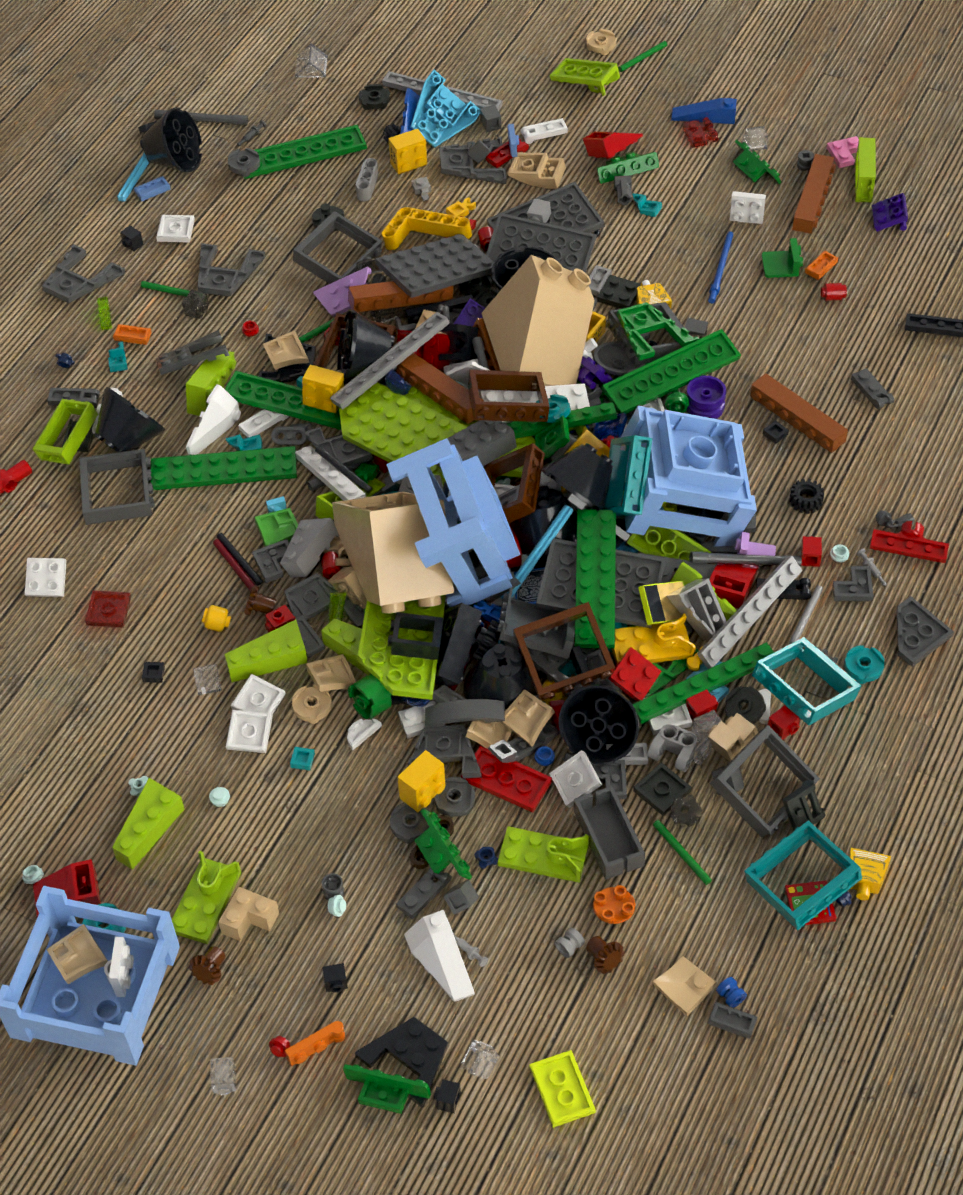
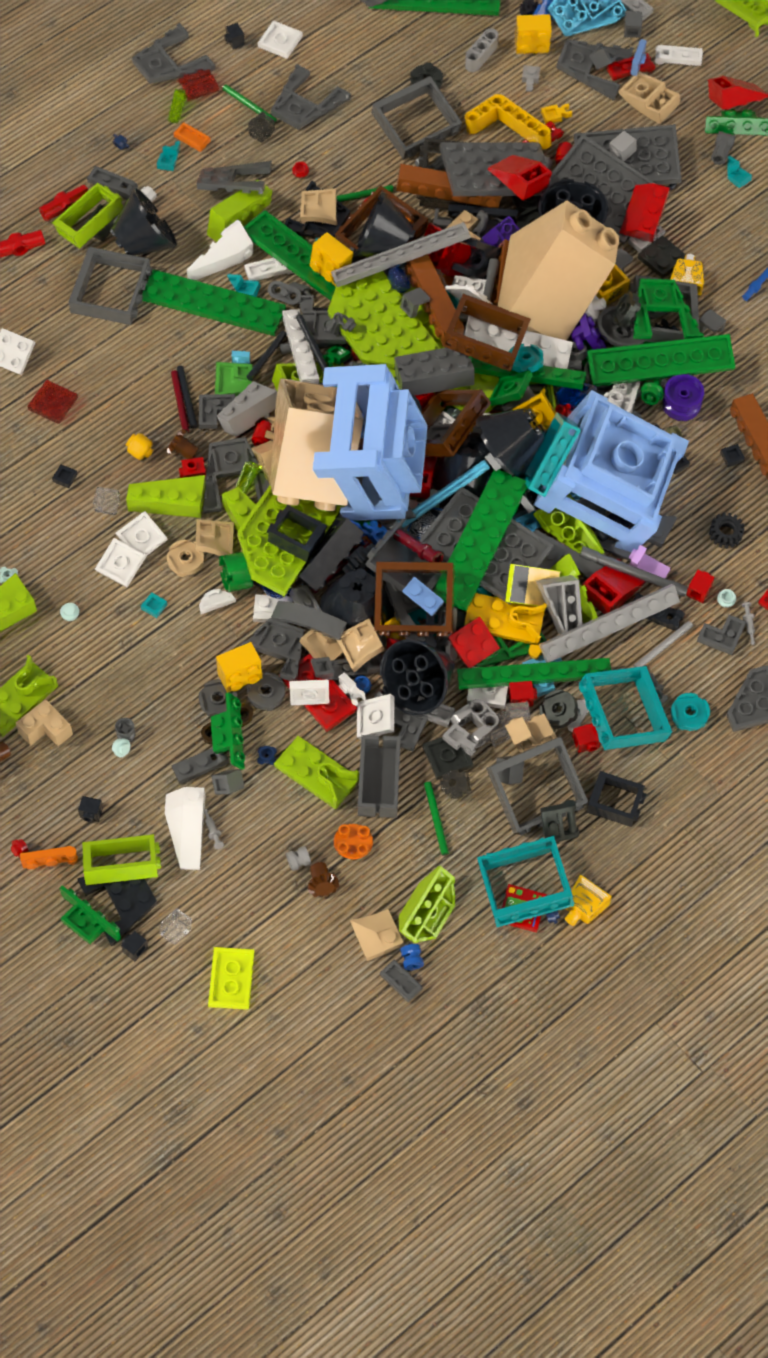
camera: 20 degrees right, 10 degrees up
(32, 430) = (61, 202): none -> red piece
(117, 288) = (198, 84): none -> clear red plate
(299, 496) = (251, 375): none -> black bar
(335, 295) = (389, 162): lavender wing -> none
(355, 442) = (334, 324): none -> dark grey piece
(397, 1027) = (125, 871): none -> lime window
(422, 395) = (412, 301): none -> dark grey panel
(466, 259) = (522, 175): none -> red slope
(502, 778) = (309, 692): none -> white plate
(537, 762) = (349, 687): none -> white plate
(547, 607) = (424, 551): none -> dark red pin
(573, 644) = (423, 596): none -> medium blue plate
(589, 254) = (645, 211): none -> red slope
(618, 339) = (626, 308): none -> pearl dark grey plate
(666, 767) = (458, 737): none -> light grey plate
(721, 935) = (428, 906): none -> lime wedge
(842, 782) = (611, 813): none -> black window

